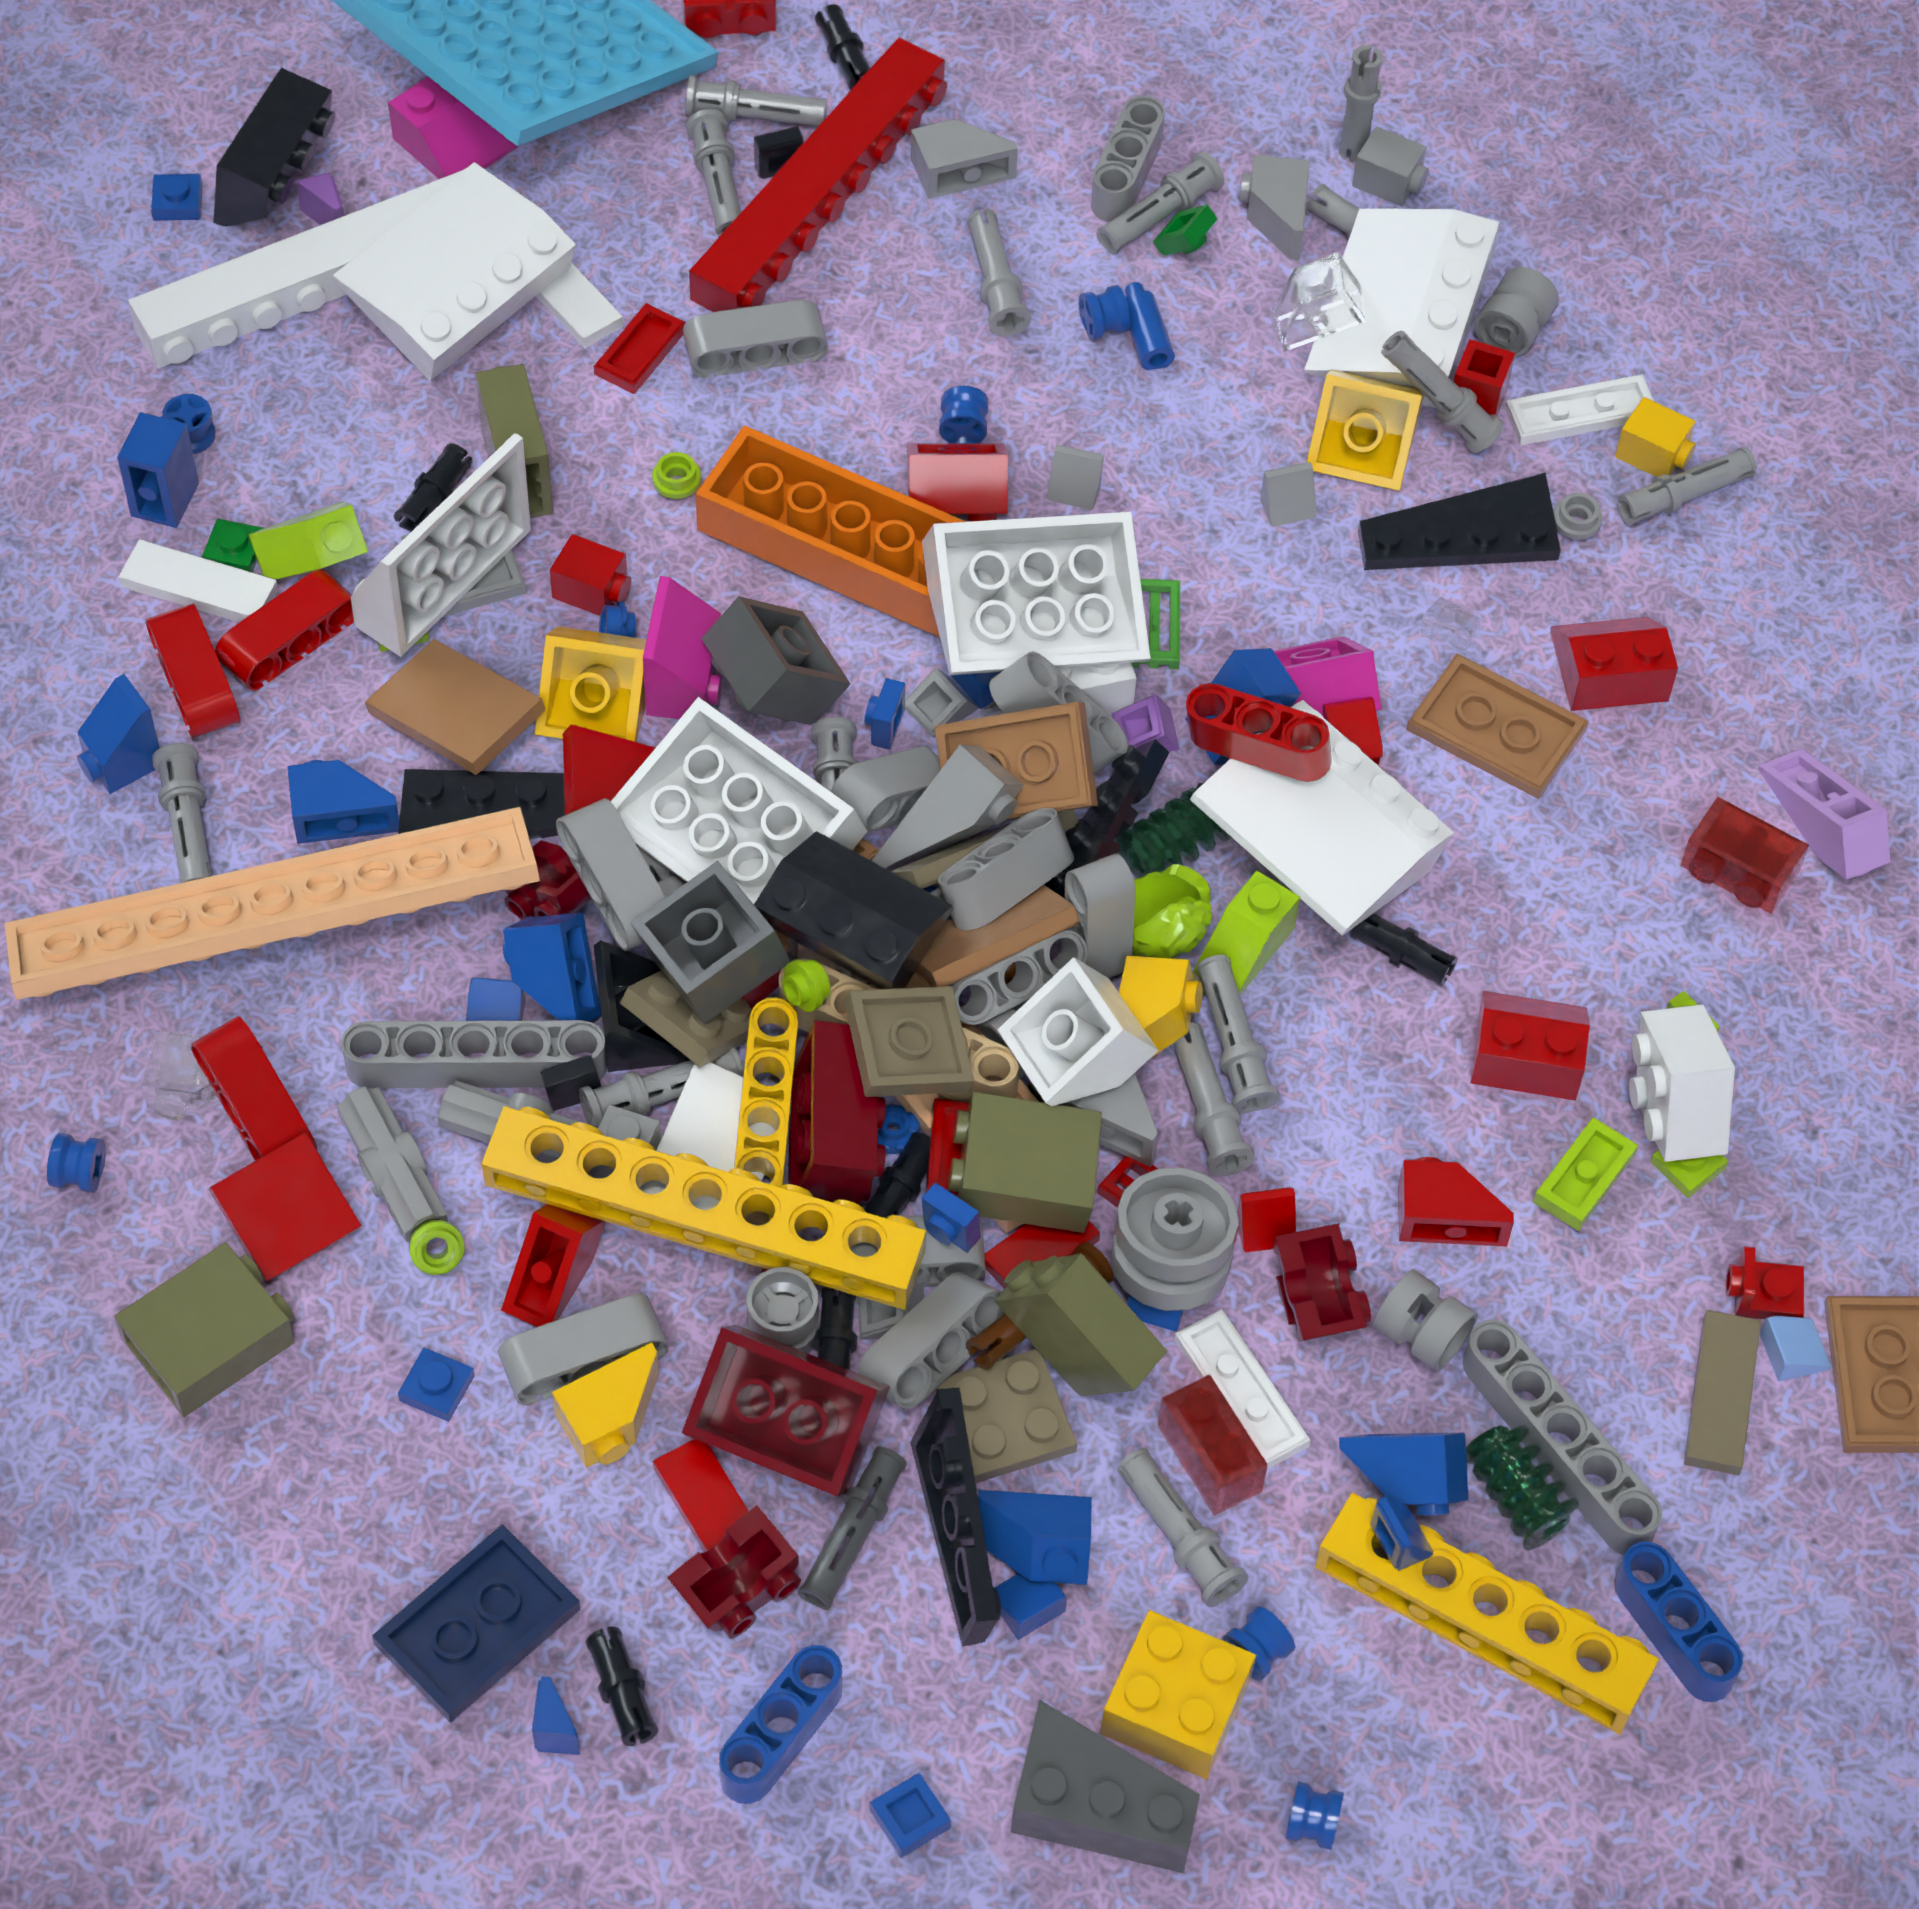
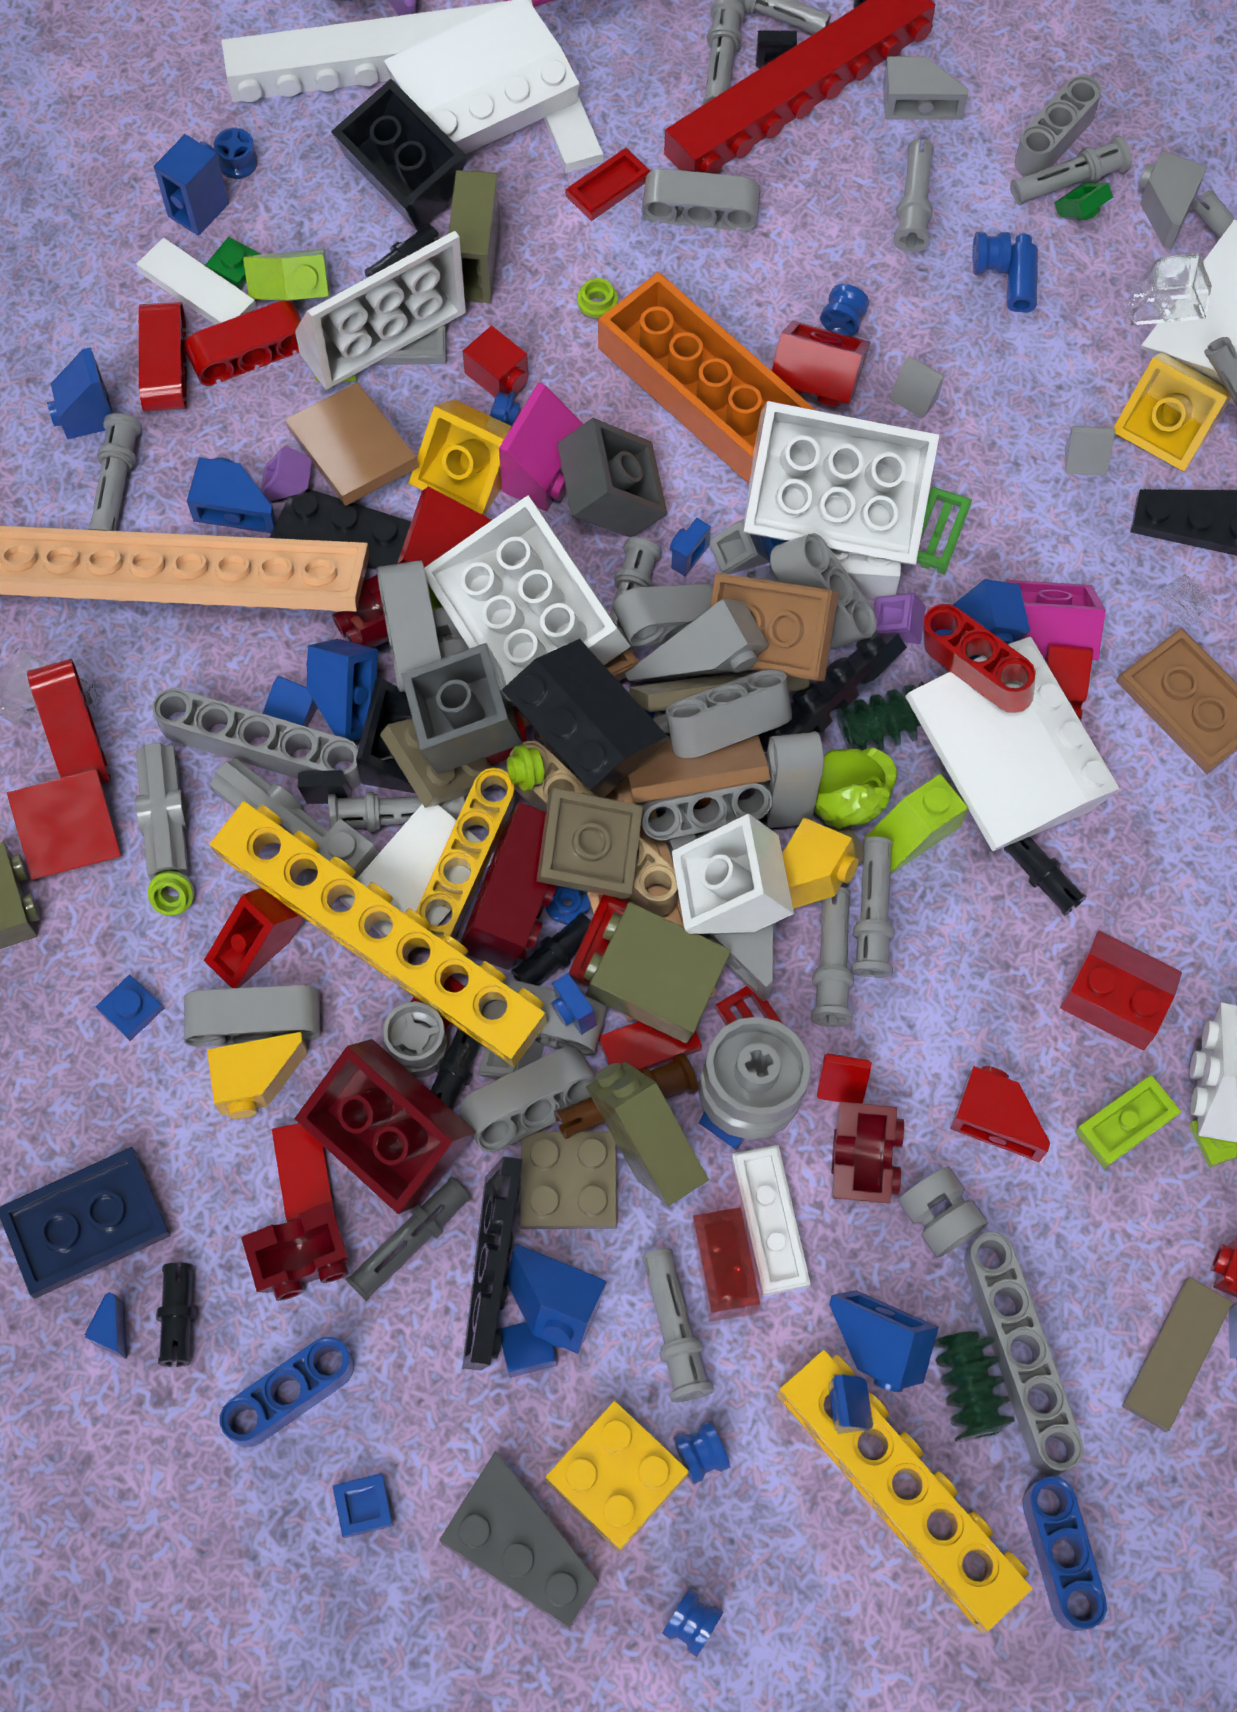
camera: 20 degrees right, 10 degrees up
(392, 759) = (286, 474): none -> medium lavender slope
(394, 373) = (401, 153): none -> black slope

